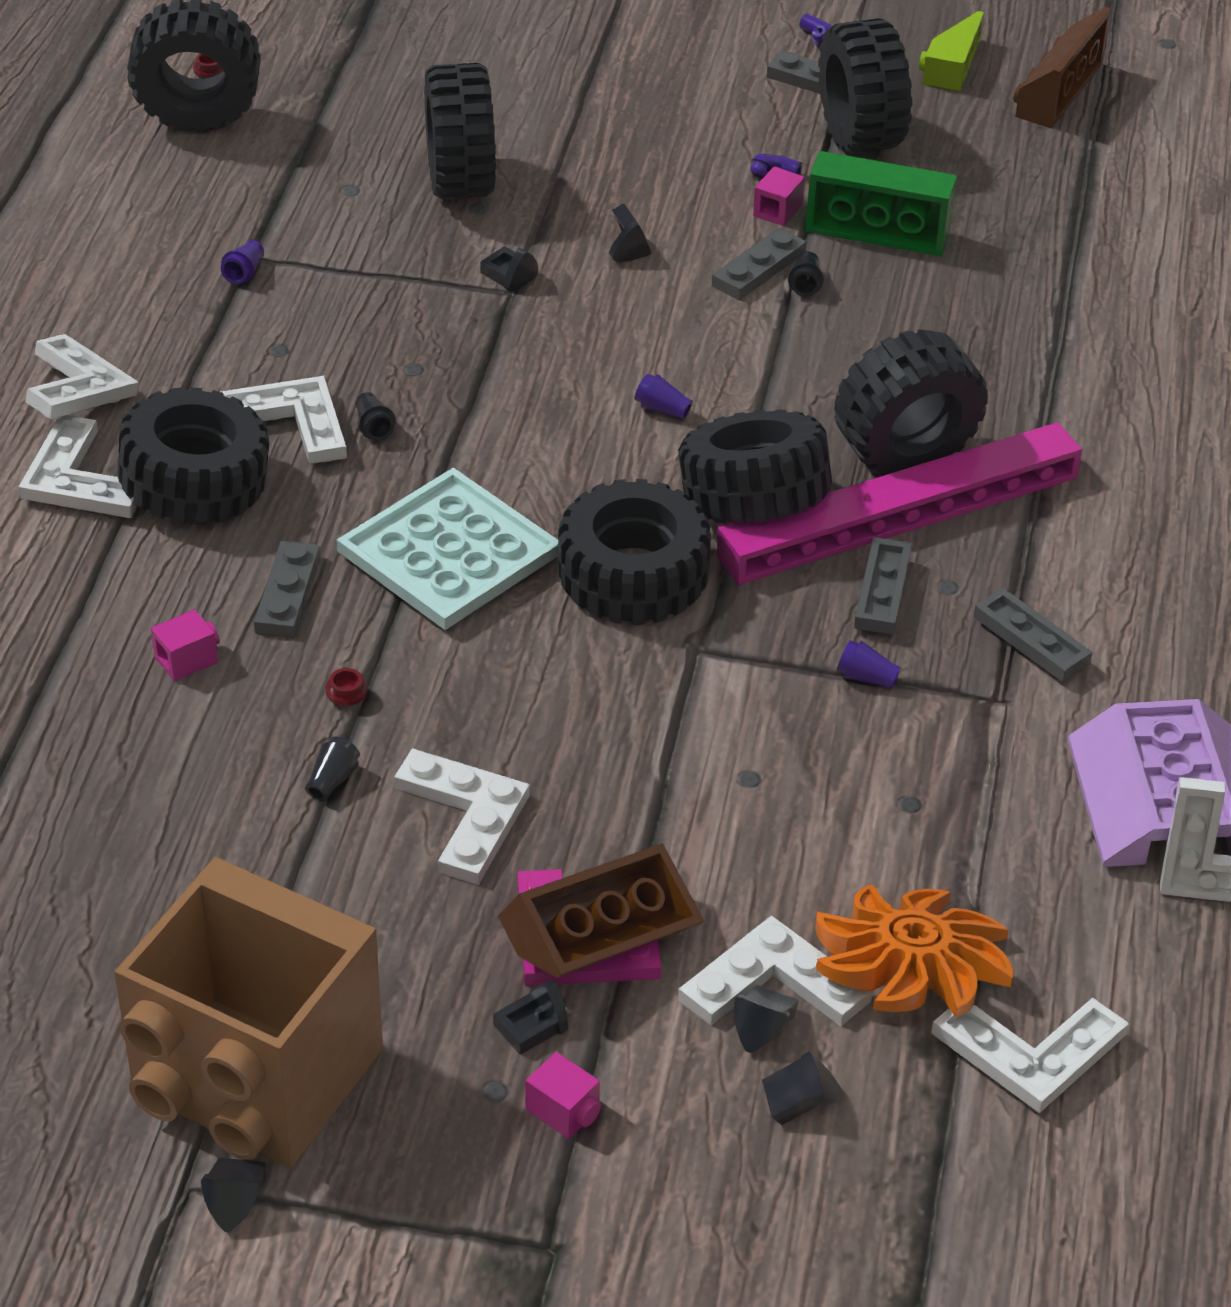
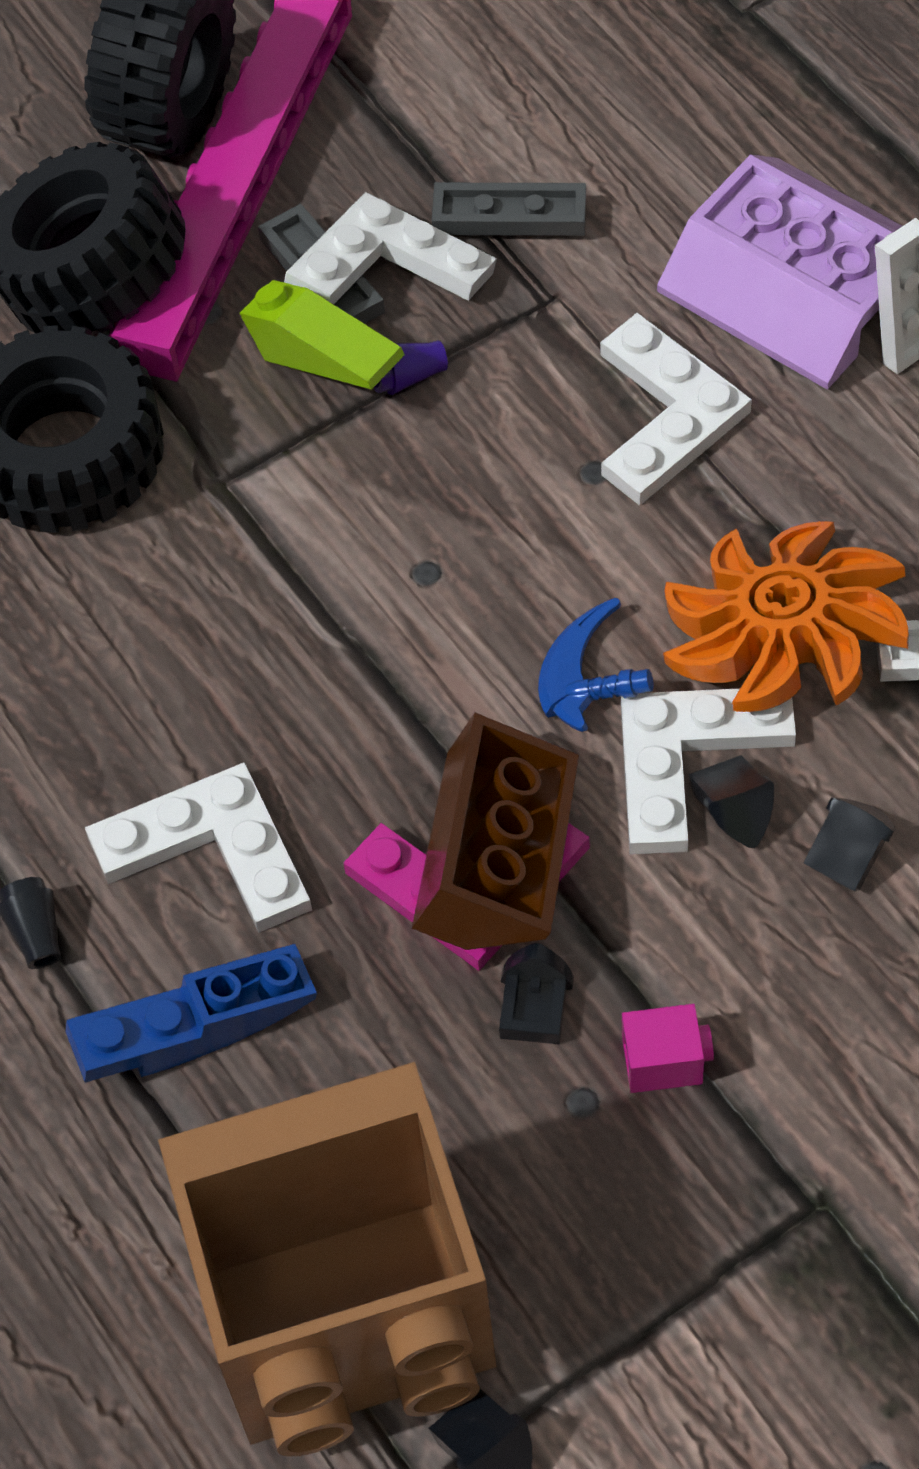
camera: 40 degrees left, 15 degrees up
(355, 880) = (194, 1020): none -> blue slope
(750, 888) = (561, 677): none -> blue piece
(828, 607) = (316, 336): none -> lime slope
(927, 583) = (379, 229): none -> white plate
(1011, 819) = (698, 411): none -> white plate

